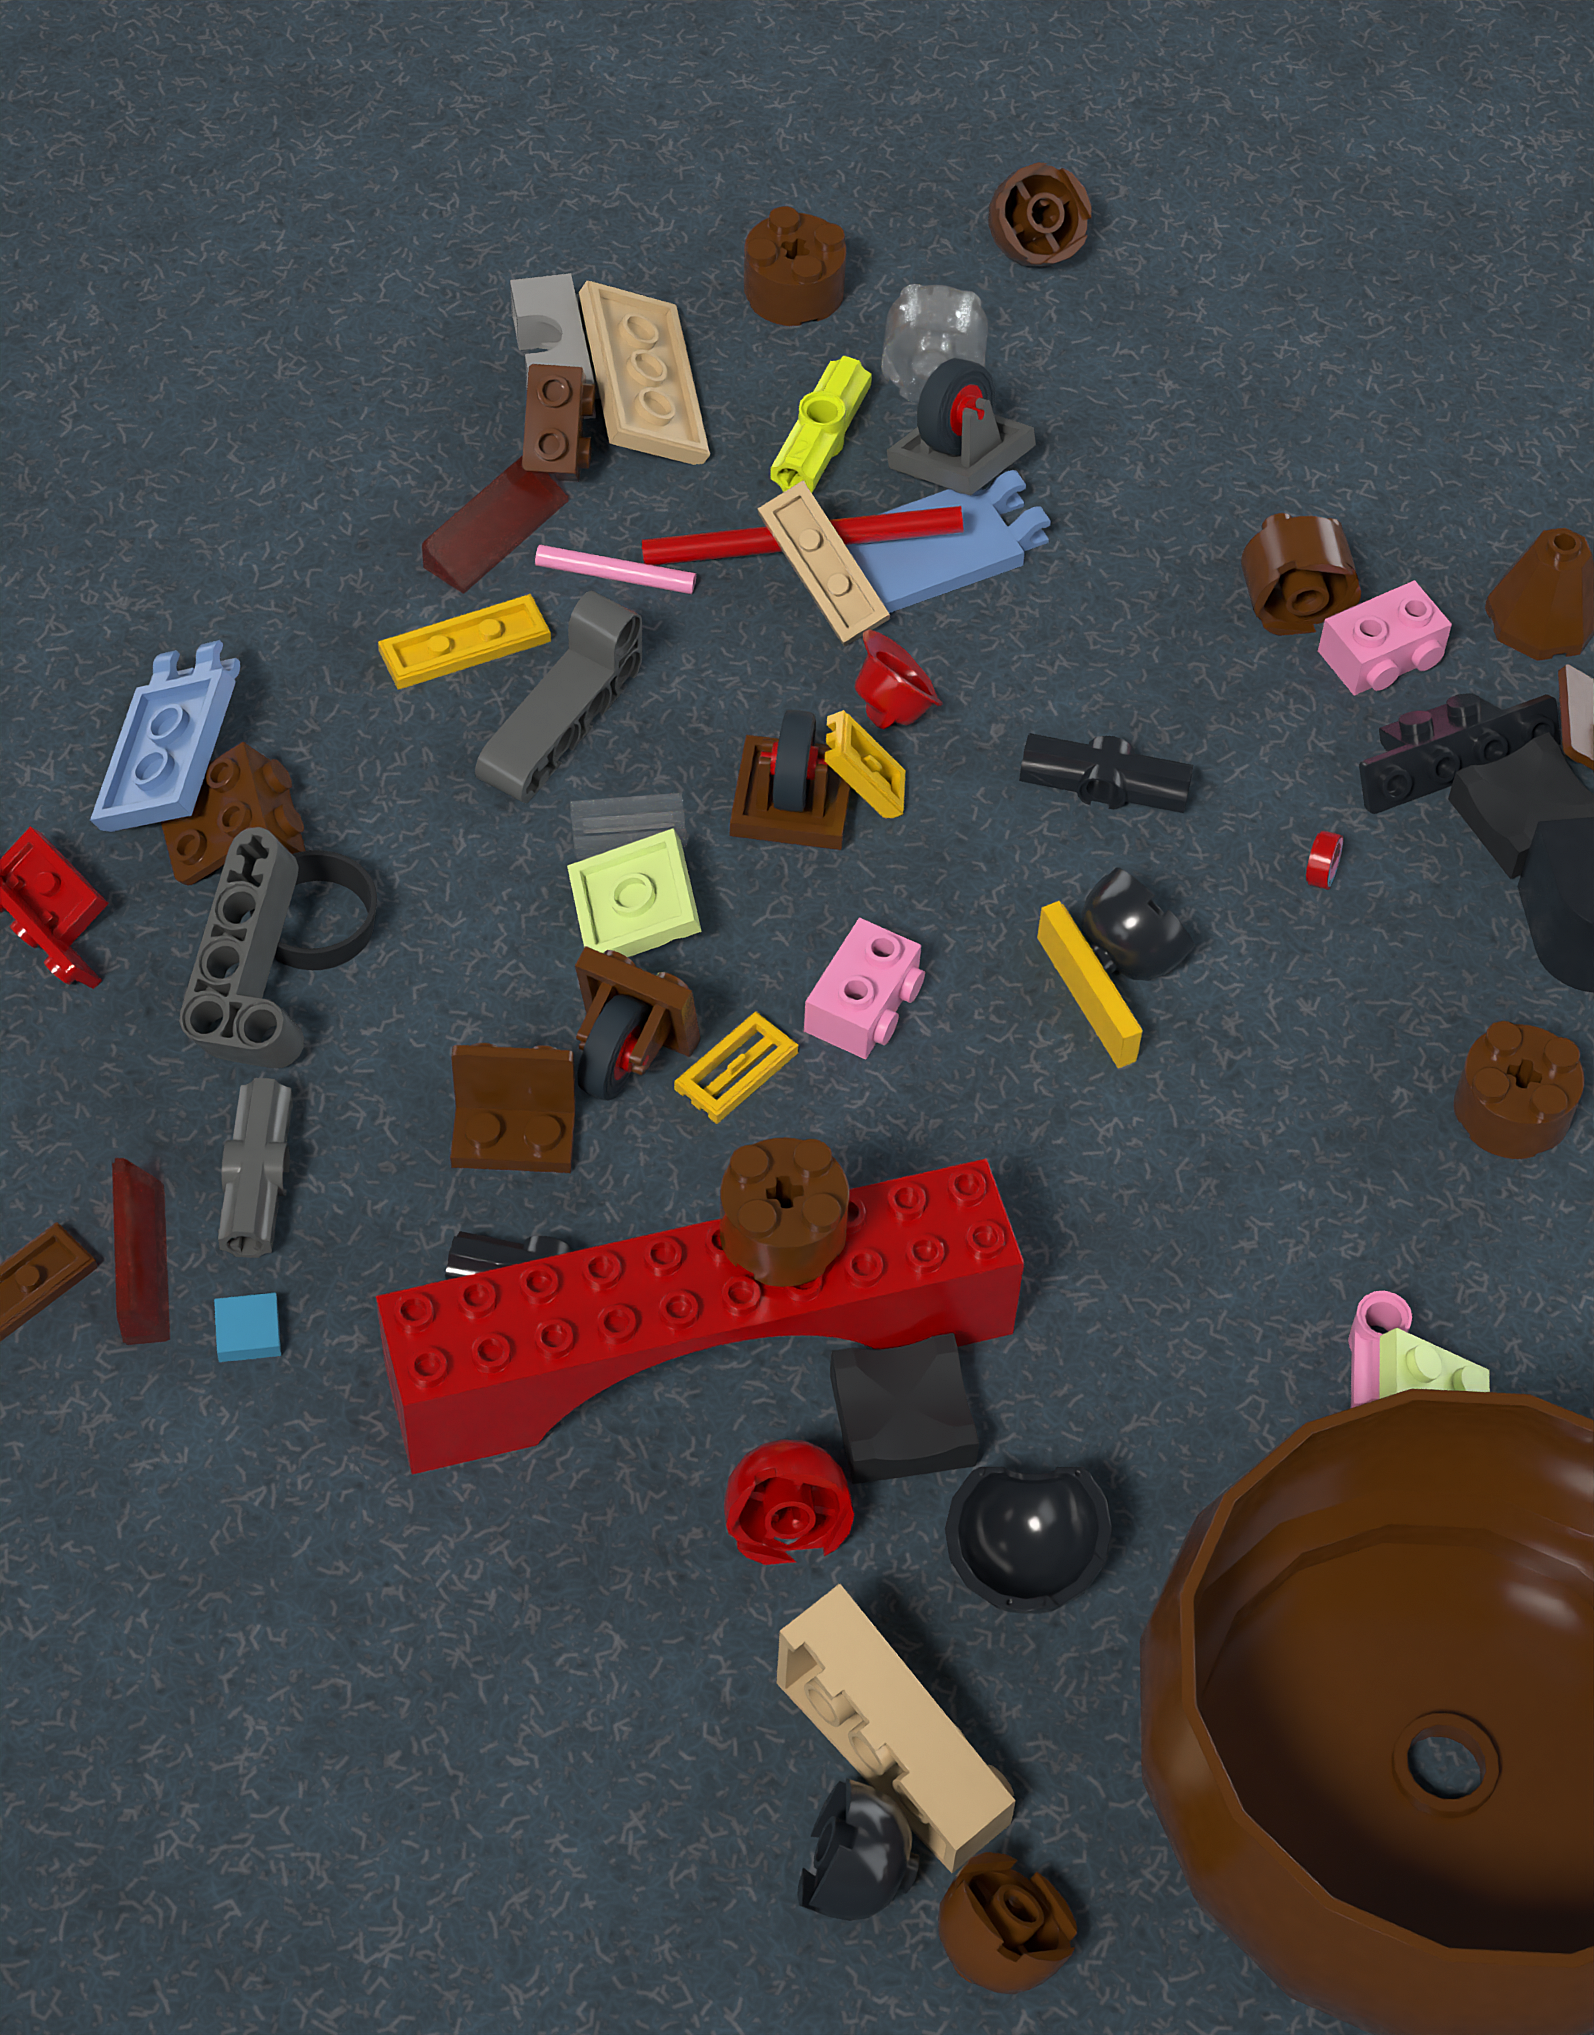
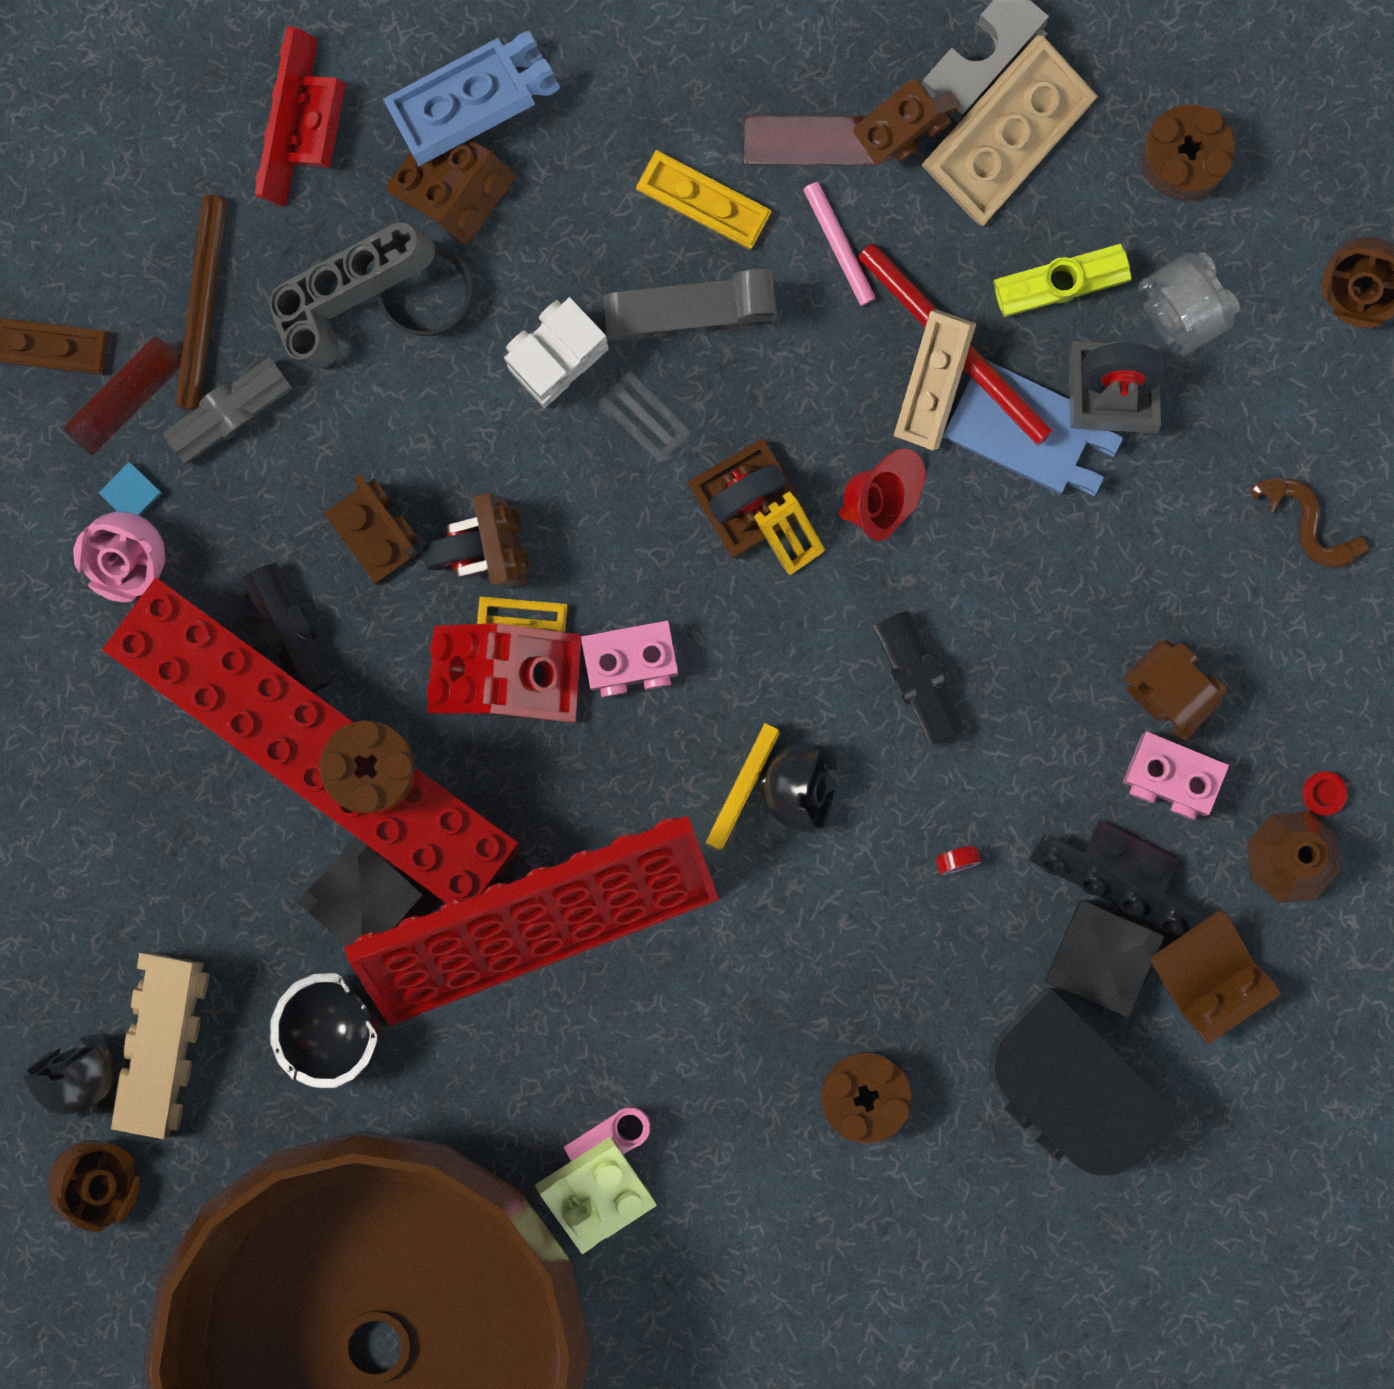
camera: 60 degrees right, 30 degrees up
(120, 1119) = (201, 302): none -> reddish brown axle
(310, 1362) = (120, 555): none -> bright pink cylinder
(491, 827) = (556, 351): none -> white brick
(635, 896) = (582, 471): yellowish green hinge -> none
(777, 1079) = (500, 672): none -> red bracket
(787, 1494) = (251, 878): red cylinder -> none
(1080, 1222) = (533, 921): none -> red plate
(1169, 406) = (1331, 557): none -> reddish brown animal
(1496, 551) = (1324, 793): none -> red tile

